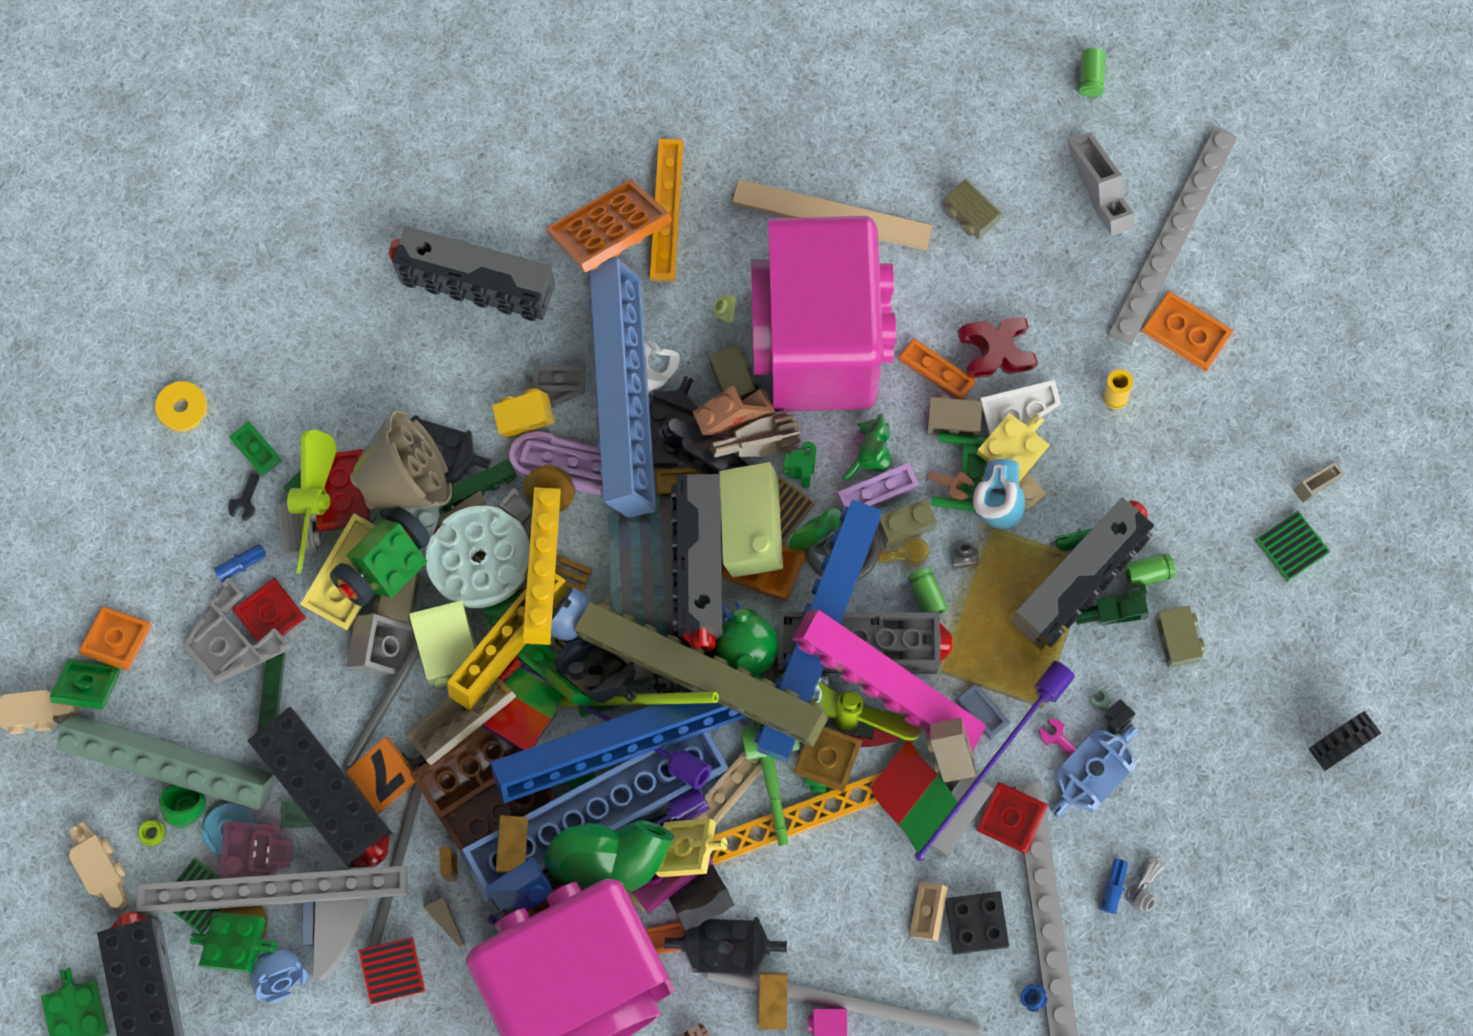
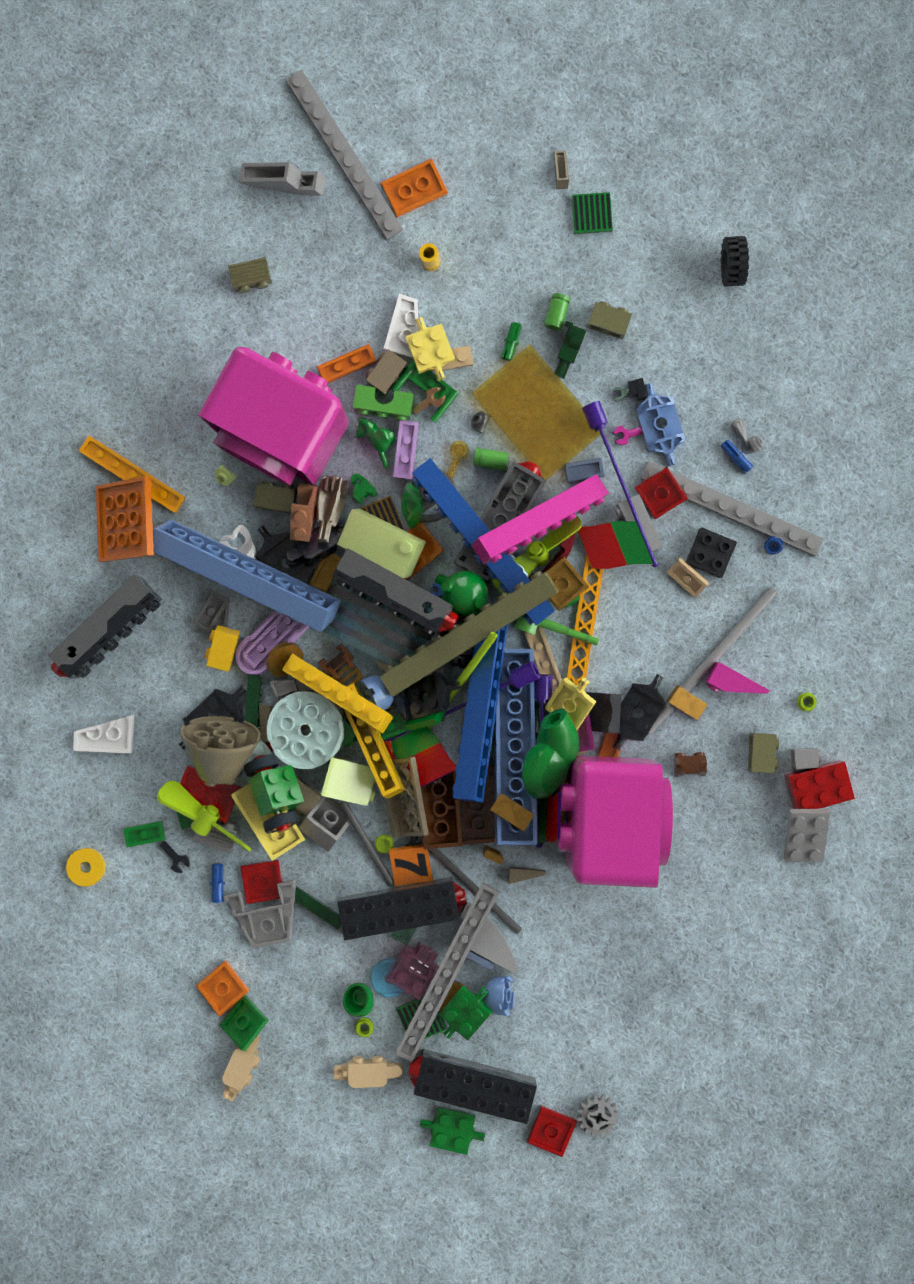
camera: 70 degrees left, 15 degrees up
(165, 761) = (324, 997): sand green brick -> none
(347, 347) = (107, 737): none -> white wing
(391, 970) = (536, 923): tile -> none
(392, 728) = (384, 843): none -> lime plate
(521, 887) = (544, 820): blue slope -> none
(581, 553) = (337, 662): none -> reddish brown piece
(797, 205) = (199, 368): tan tile -> none
(906, 523) = (439, 444): olive brick -> none
(923, 454) = (399, 407): none -> bright green arch
(952, 750) = (603, 505): brick -> none
(997, 347) = (356, 316): dark red piece -> none
(998, 509) = (457, 376): medium azure piece -> none
(1083, 572) = (540, 354): piece -> none
(1092, 72) = (200, 135): bright green piece -> none

